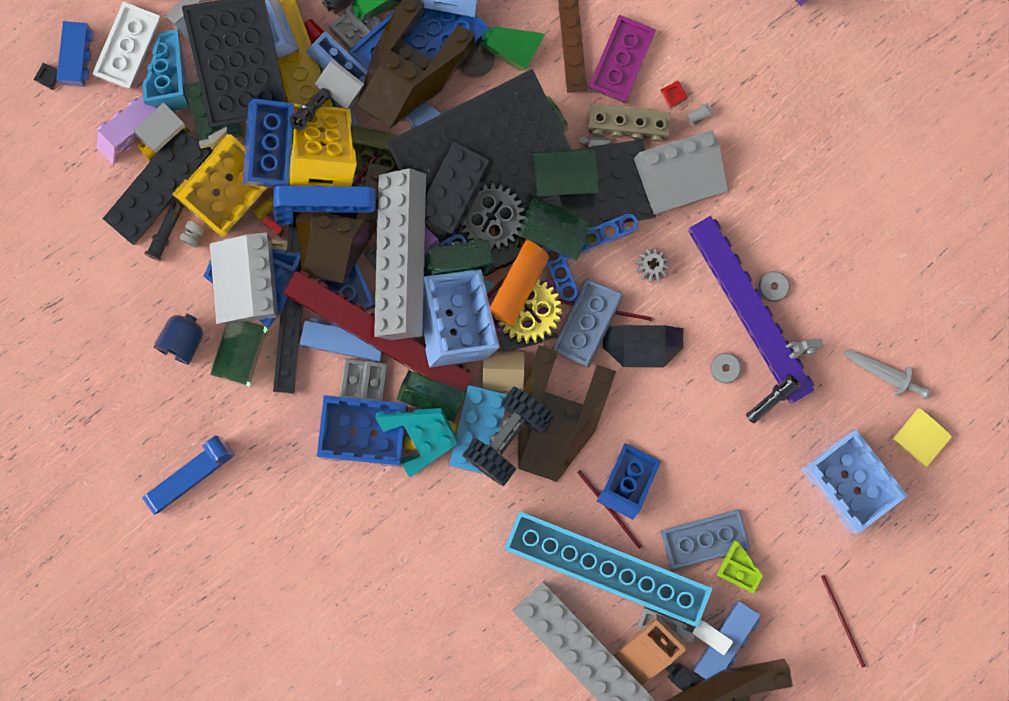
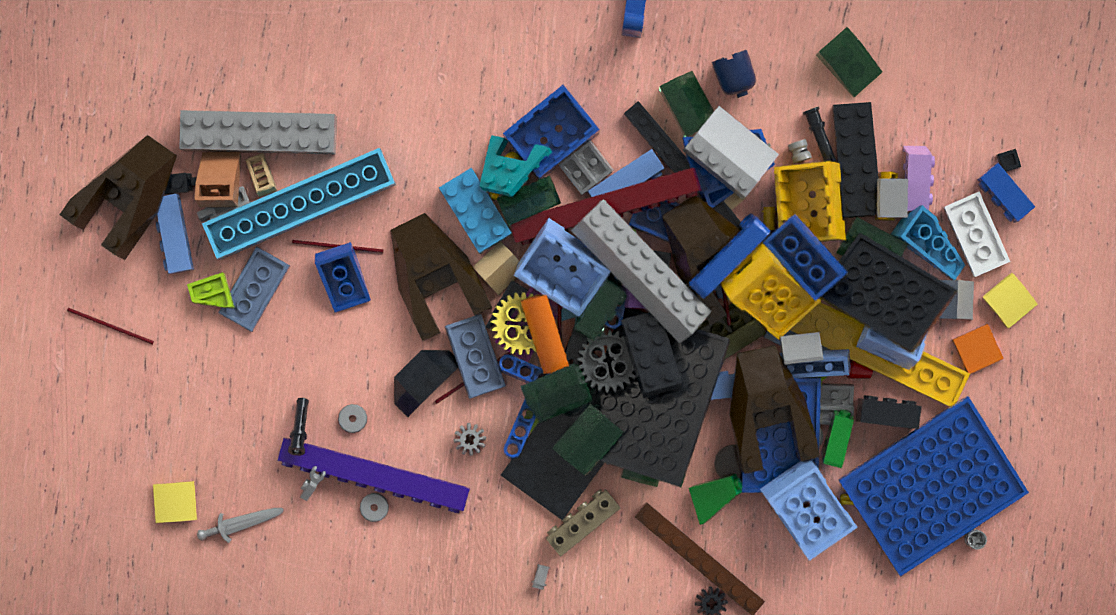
camera: 135 degrees right, 5 degrees up
(87, 264) = (849, 62): none -> clear green slope
(213, 139) = (848, 227): light grey bar -> none
(274, 227) = (752, 209): red tile -> none
(321, 97) = (801, 306): black pin -> none
(524, 411) = (446, 194): black plate -> none
(594, 141) = (593, 486): light grey bar -> none
(611, 611) = (268, 189): none -> tan slope
(622, 59) = (631, 562): magenta plate -> none
(674, 94) = (572, 573): red tile -> none
(682, 172) = (512, 522): light grey slope -> none
(712, 637) = (185, 227): white sticker -> none
(865, 471) = (170, 435): light blue container -> none

